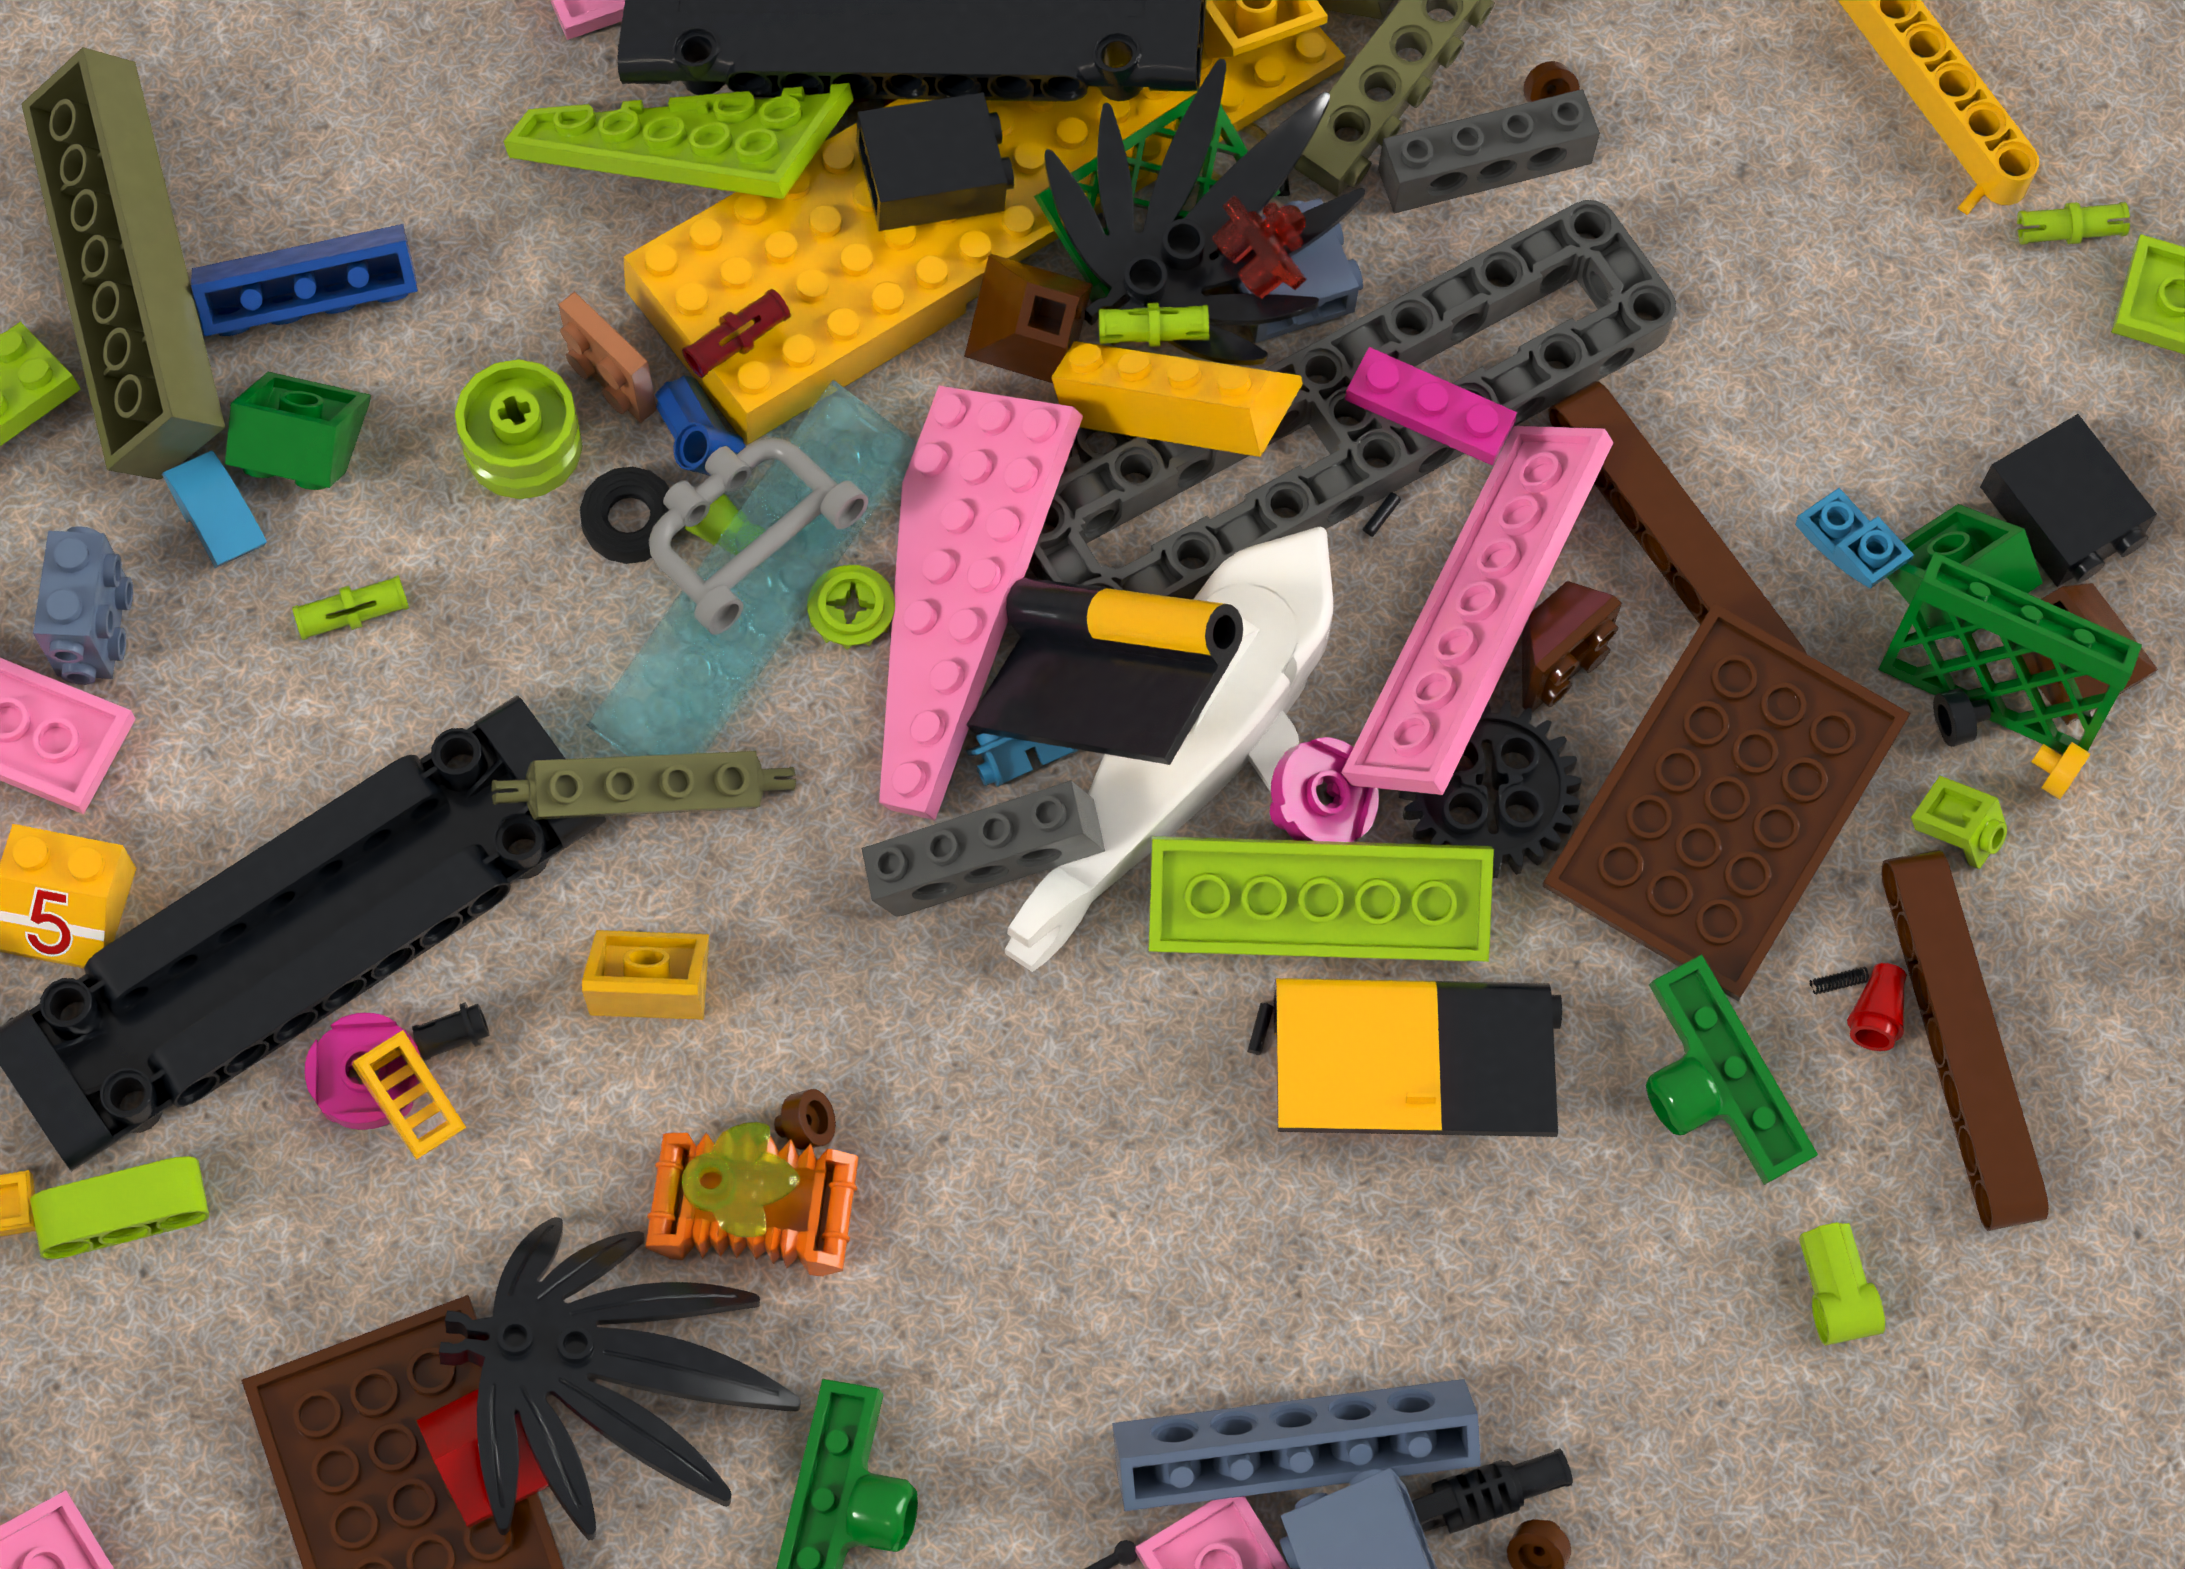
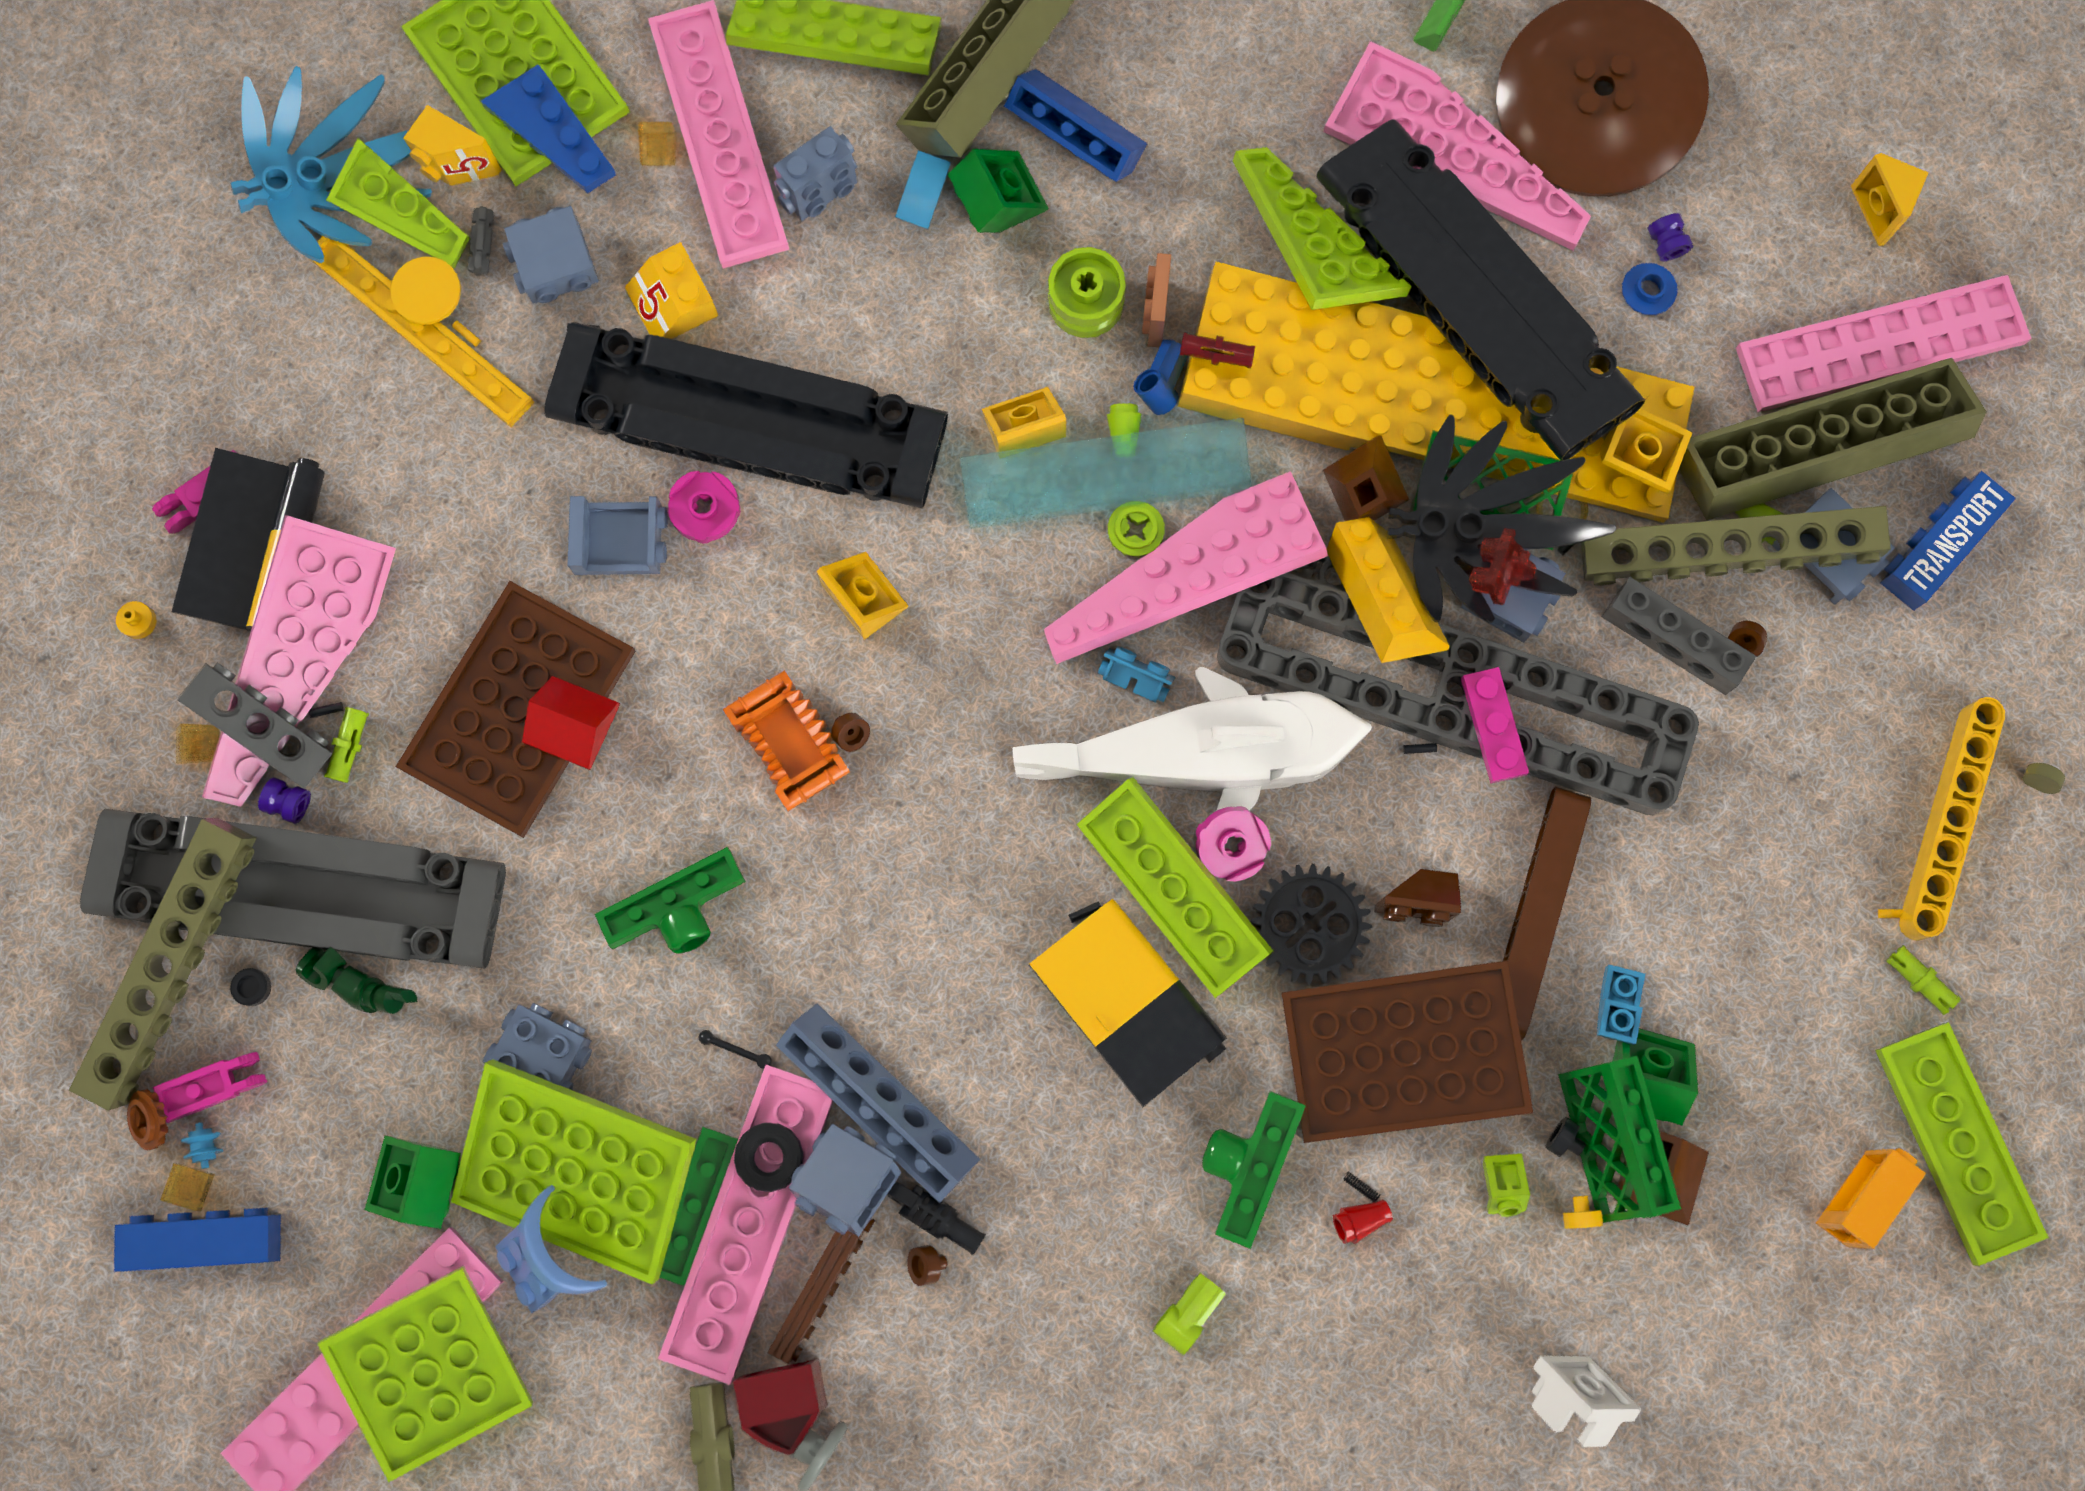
camera: 55 degrees right, 10 degrees up
(119, 1207) = (546, 454): lime beam -> none
(307, 1205) = (616, 537): none -> sand blue panel
(382, 1055) = (723, 512): yellow slope -> none
(386, 597) = (928, 296): lime pin -> none
(451, 1031) = (764, 532): black pin -> none
(556, 1349) = (626, 710): black plant -> none
(600, 498) = (1087, 362): black tyre -> none
(608, 620) = (1025, 421): none -> yellow slope
(643, 785) = (950, 511): olive plate -> none
(716, 604) = (1112, 407): light grey bar -> none
(748, 1179) = (790, 729): clear neon green plate -> none
(933, 161) = (1403, 364): black brick -> none
(983, 849) = (1053, 701): dark grey brick -> none
(1107, 669) = (1191, 683): black door -> none
(1153, 324) = (1409, 548): lime pin -> none
(1477, 609) = (1403, 840): bright pink plate -> none
(1964, 1041) = (1381, 1278): reddish brown beam -> none
(2069, 501) = (1746, 1104): black brick -> none

